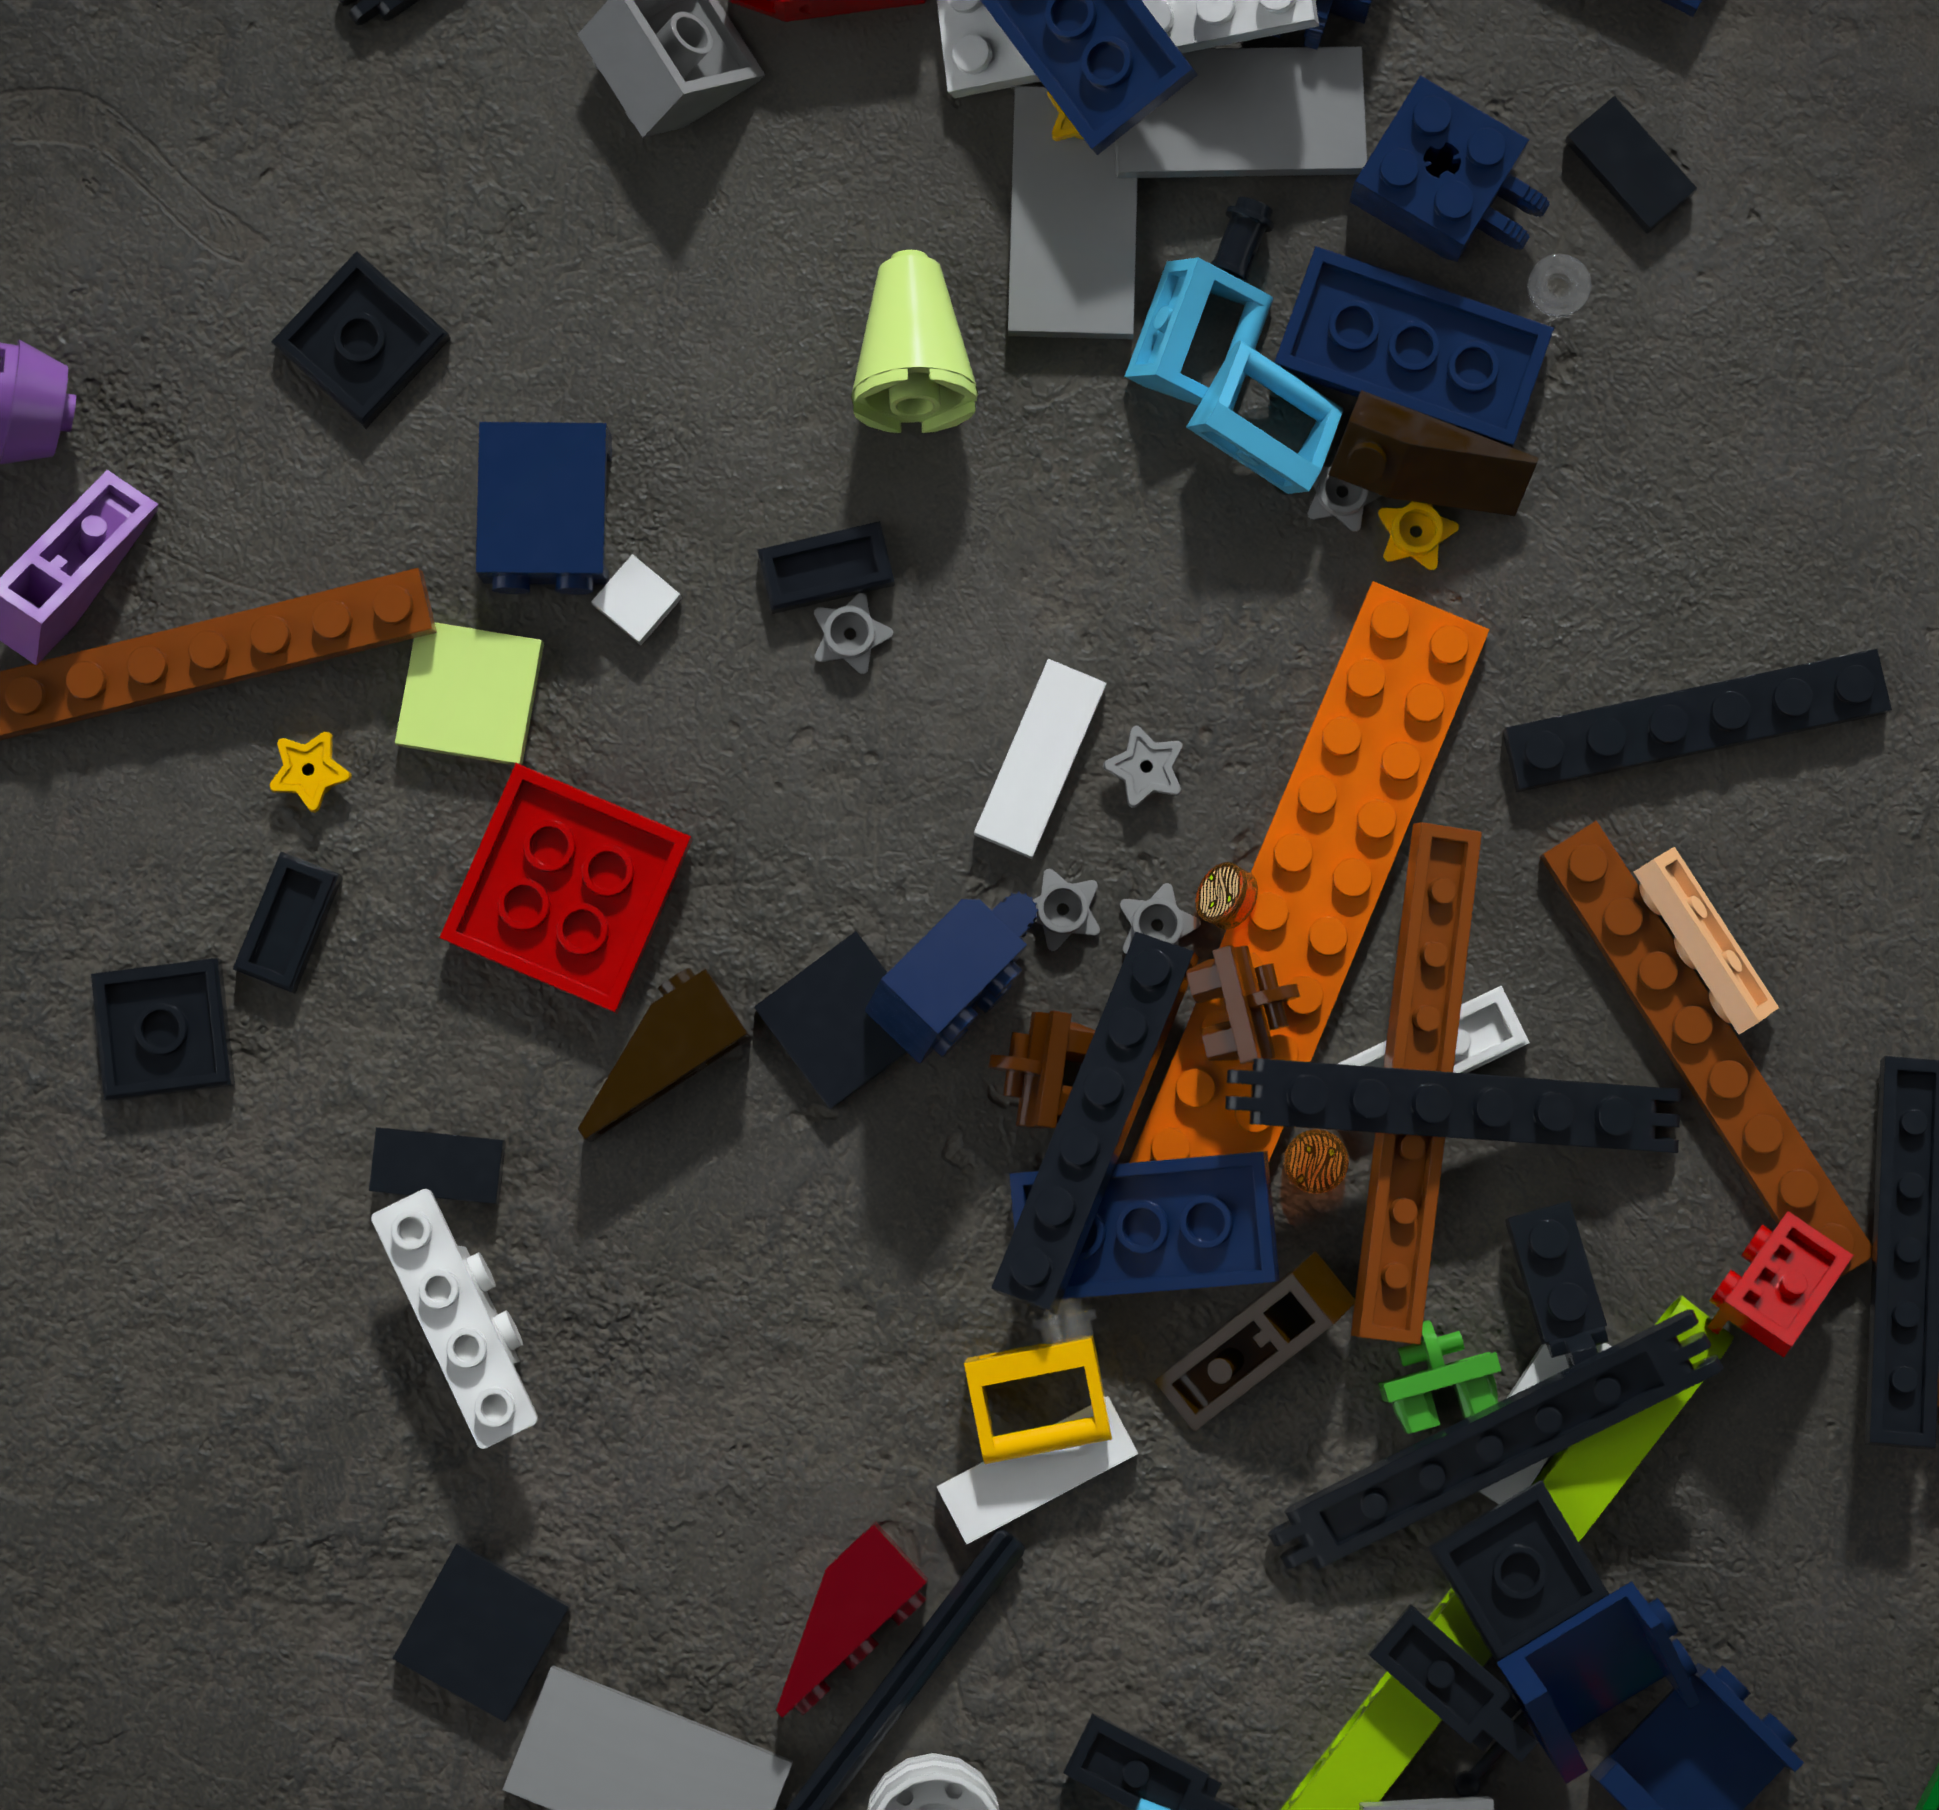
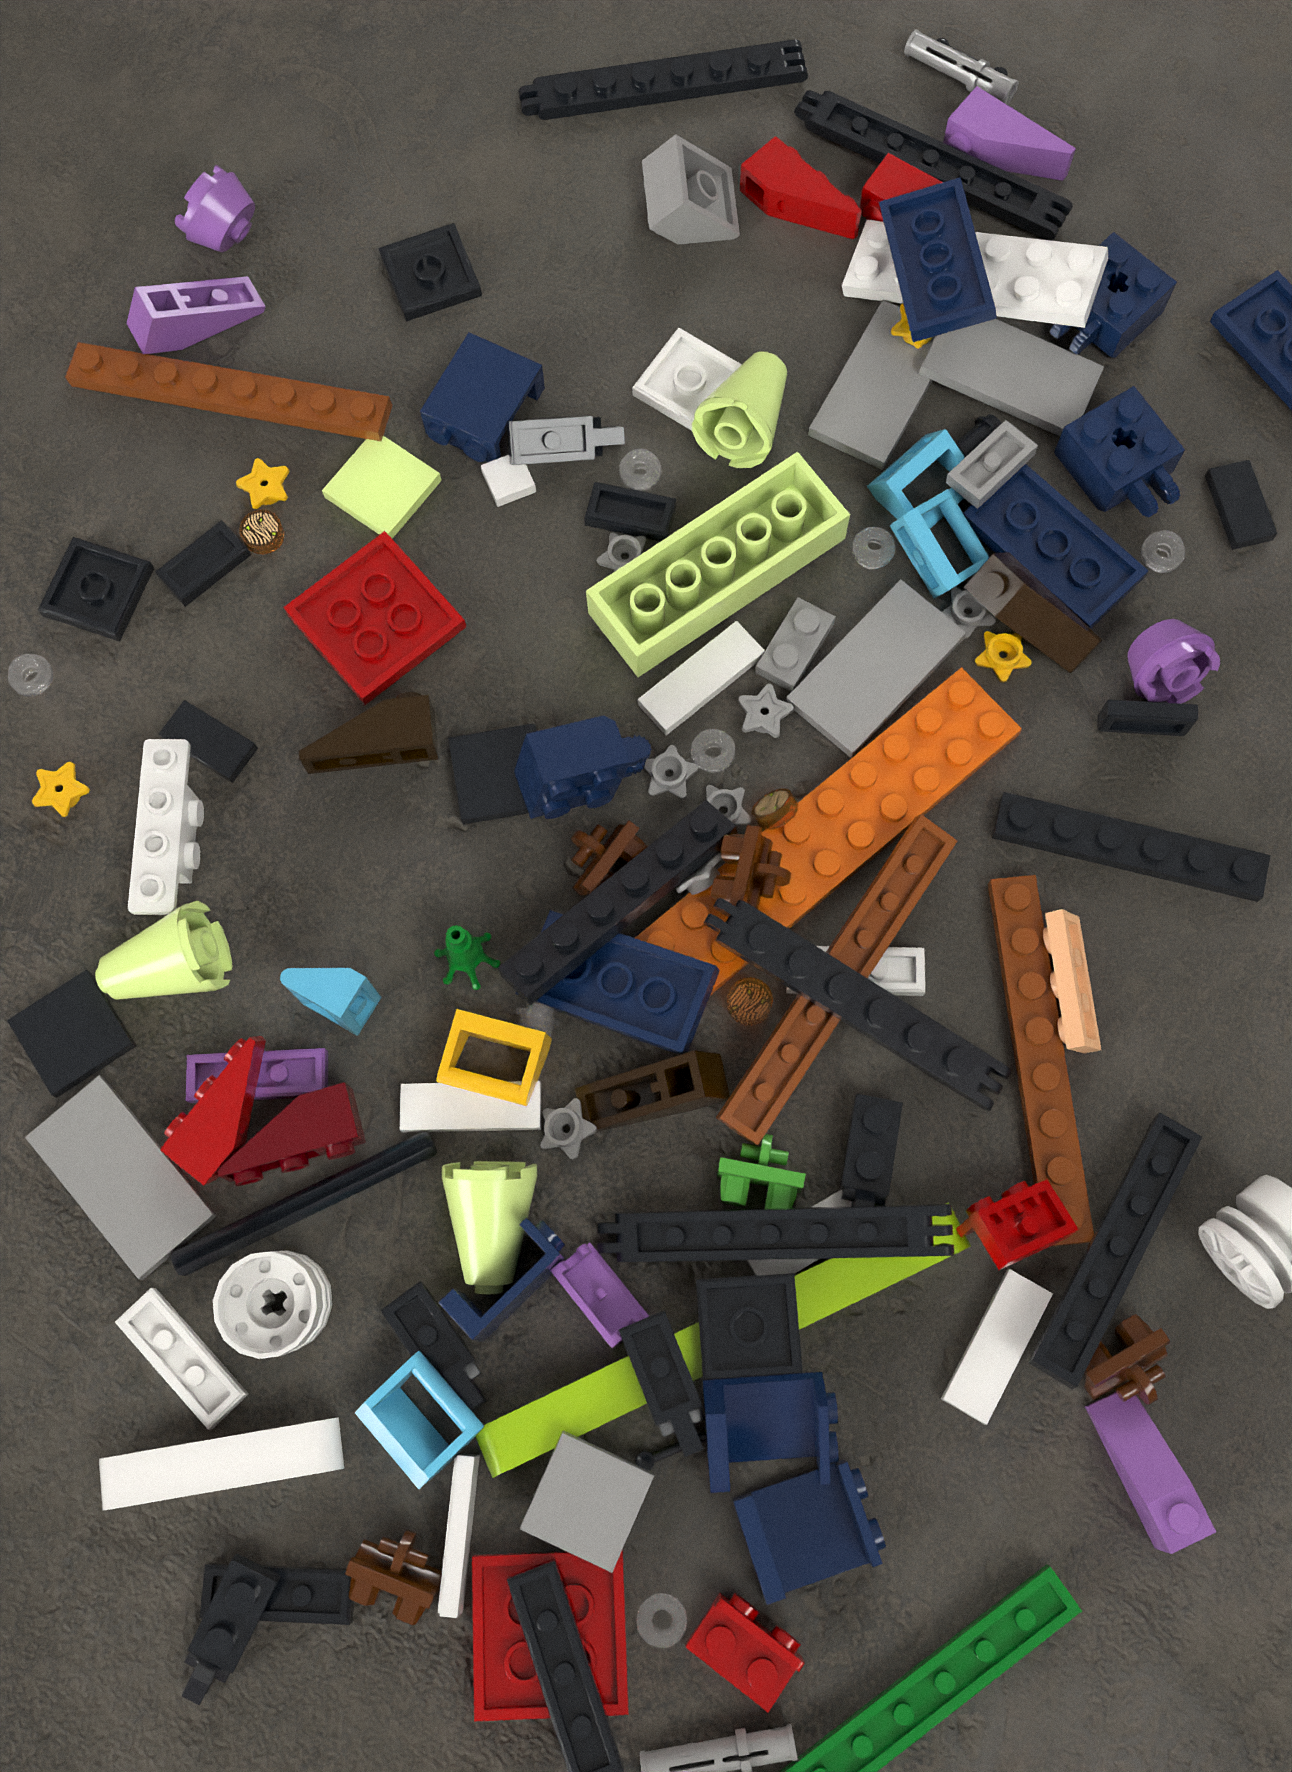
camera: 25 degrees right, 10 degrees down
(128, 1193) = (25, 665): none -> clear plate
(295, 1319) = (62, 800): none -> yellow plate
(343, 839) = (262, 531): none -> tile
(558, 1480) = (168, 958): none -> yellowish green cone
(684, 515) = (559, 439): none -> hinge
(740, 1661) = (220, 1117): none -> red slope
(747, 1565) = (280, 1077): none -> medium lavender tile
(803, 1425) = (334, 993): none -> medium azure tile
(804, 333) = (683, 377): none -> white tile
(809, 482) = (640, 459): none -> clear plate
(931, 1283) = (465, 954): none -> green piece
(988, 596) = (717, 564): none -> yellowish green brick
(1111, 833) = (713, 738): none -> clear plate
(1137, 1595) = (486, 1216): none -> yellowish green cone
(1139, 651) = (795, 644): none -> light grey plate
(1162, 1453) = (555, 1122): none -> light grey plate
(1177, 483) = (873, 558): none -> clear plate
(1182, 1035) = (702, 877): none -> light grey plate
(1198, 1732) = (480, 1325): none -> dark blue panel
(1261, 633) = (875, 668): none -> light grey tile
(1281, 276) = (991, 464): none -> light grey plate
(1317, 1619) = (599, 1293): none -> medium lavender hinge
(1640, 450) = (1171, 661): none -> medium lavender cone
(1643, 537) = (1147, 717): none -> black tile
(1818, 1439) = (996, 1346): none -> white tile

